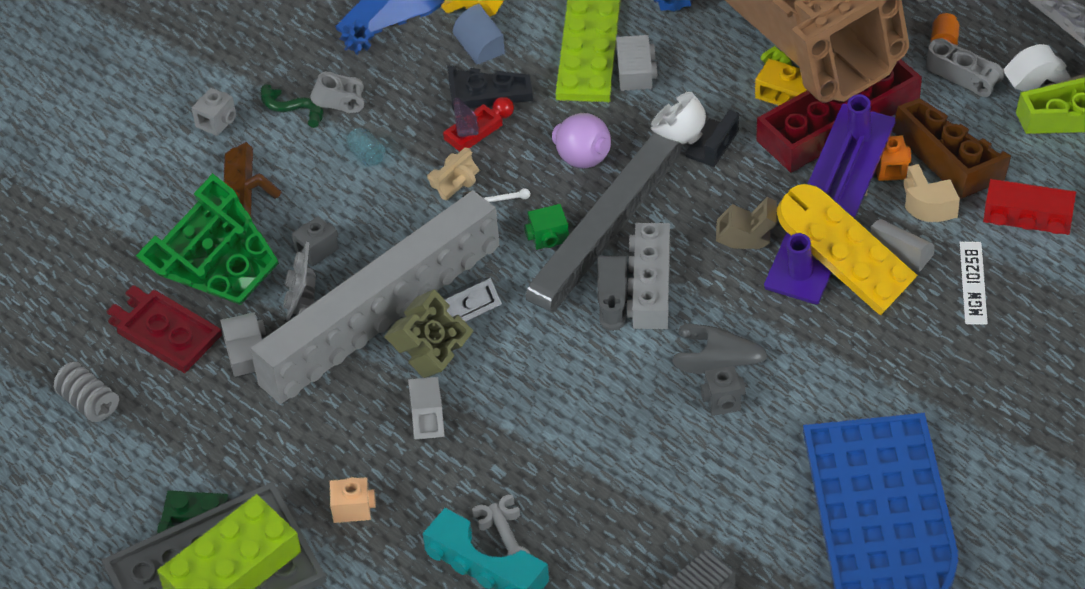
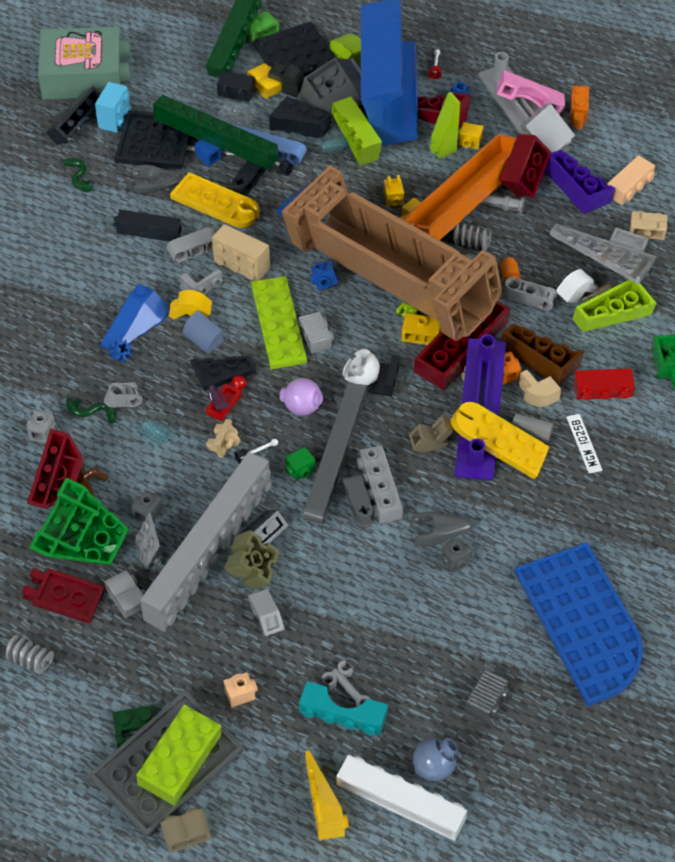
camera: 20 degrees left, 5 degrees up
(215, 150) = (59, 461): none -> dark red wedge

